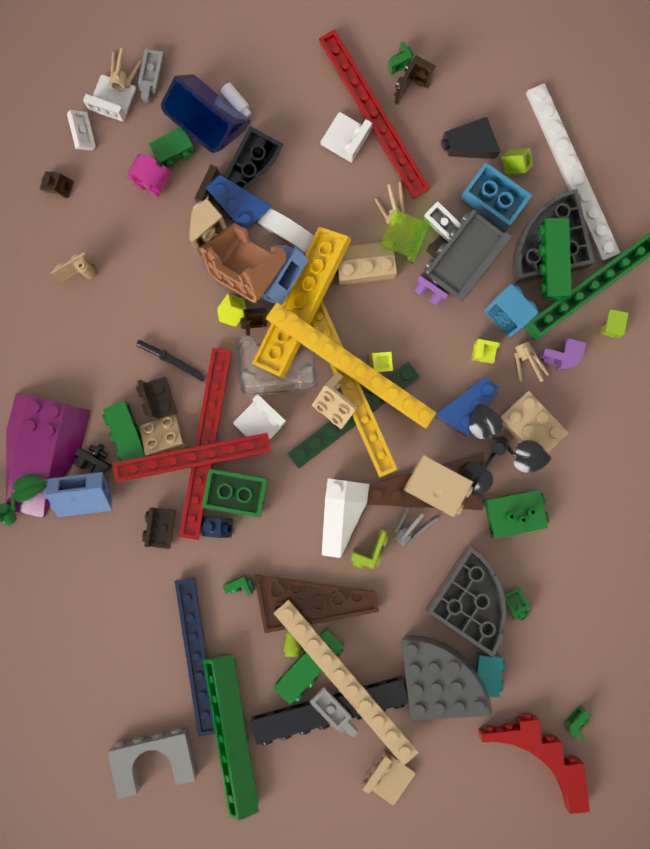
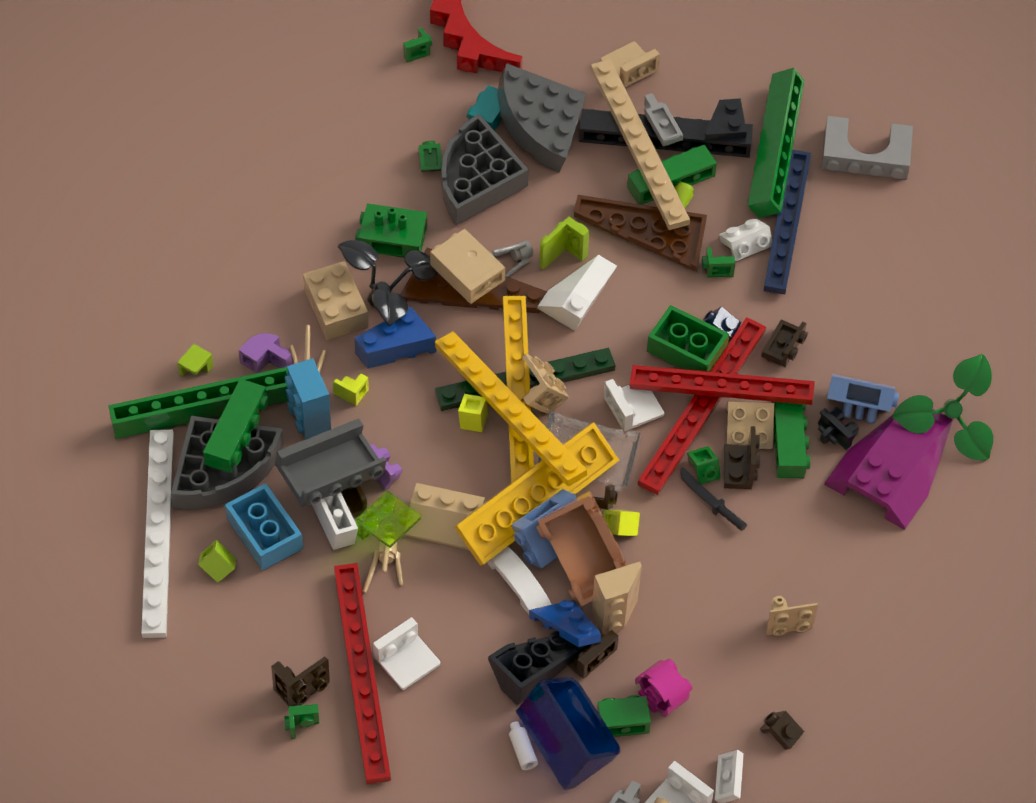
camera: 160 degrees left, 30 degrees down
(186, 388) = (705, 464): none -> green bracket
(224, 624) = (747, 238): none -> white bracket
(278, 737) = (727, 121): none -> black wing
(471, 141) = (261, 600): black slope -> none

